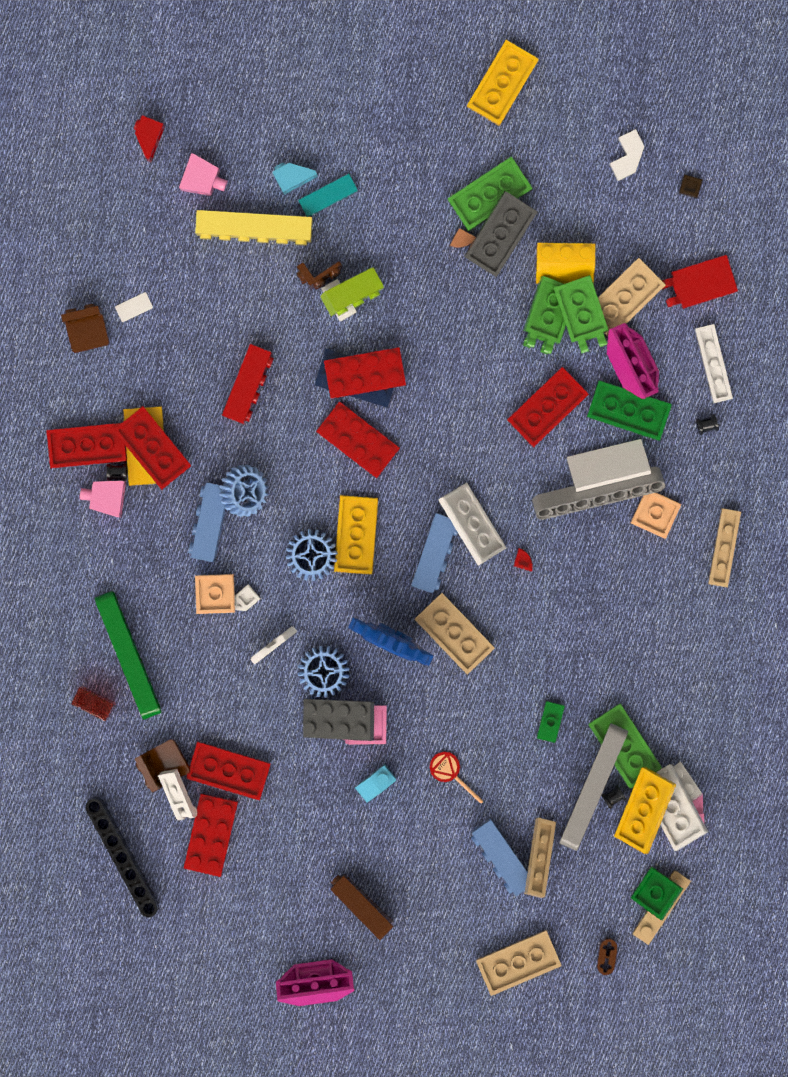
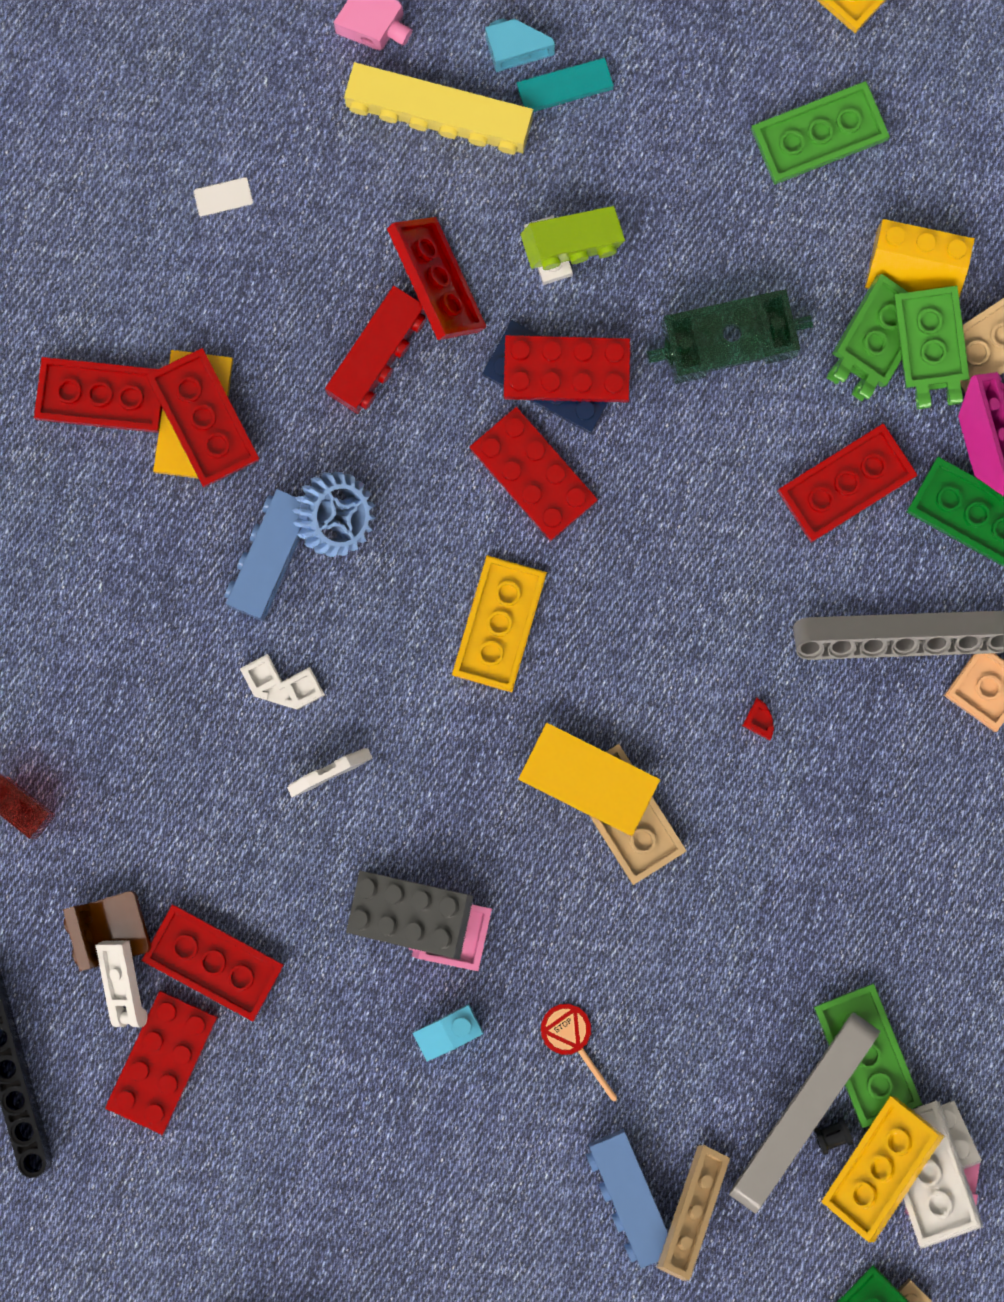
camera: 15 degrees right, 5 degrees down
(85, 328) = (139, 210): reddish brown bracket -> none
(105, 497) = (113, 481): bright pink torso -> none
(117, 472) = (138, 446): black bush -> none
(128, 655) = (91, 741): green beam -> none
(215, 593) = (253, 670): light nougat tile -> none
(275, 333) = (436, 277): none -> red plate
(295, 556) = (436, 642): light blue gear -> none
(306, 277) = (521, 209): reddish brown bracket -> none
(307, 673) = (374, 829): light blue gear -> none
(362, 906) = (384, 1232): reddish brown slope -> none
(391, 641) = (515, 795): blue gear -> none
(428, 618) = (589, 779): none -> yellow tile
(434, 553) = (619, 678): medium blue brick -> none
(440, 342) = (697, 342): none -> clear green brick
(462, 239) = (762, 194): nougat tile -> none
(472, 524) = (690, 642): white tile -> none
(500, 234) = (825, 196): dark grey plate -> none
(550, 721) = (753, 990): green plate -> none
(608, 465) = (928, 594): white tile -> none

